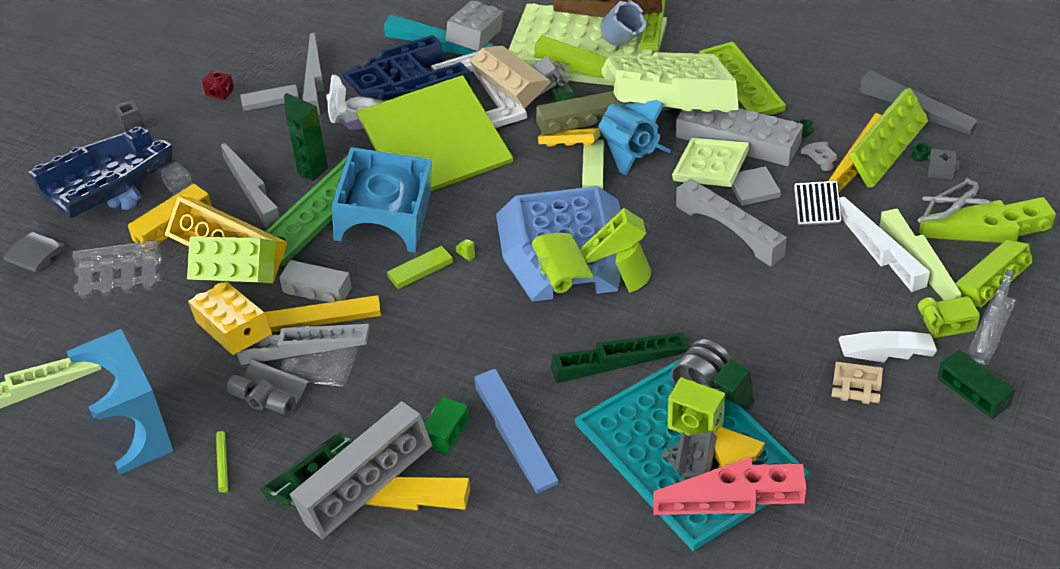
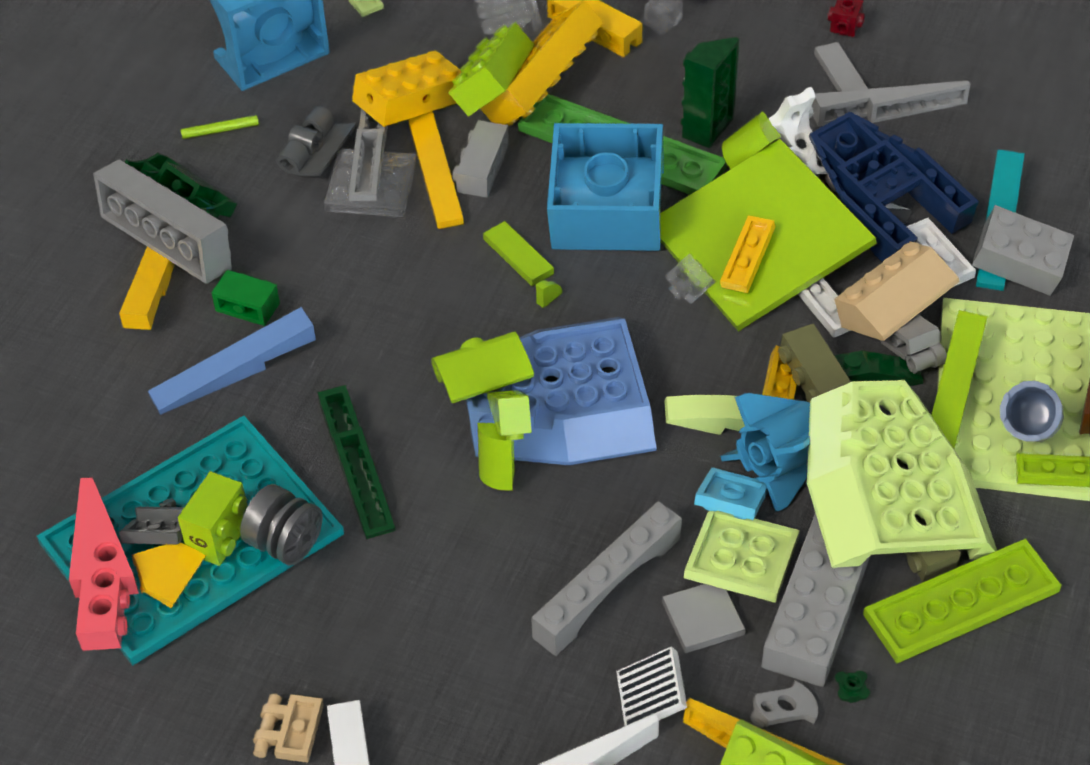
camera: 85 degrees right, 5 degrees up
(252, 187) = (642, 82): light grey slope -> none
(348, 130) = (749, 140): none -> lime brick
(459, 138) = (747, 254): none -> yellow plate
(474, 167) = (689, 279): none -> clear brick
(663, 162) = (731, 494): none -> medium azure plate
(735, 383) = (252, 561): dark green slope -> none

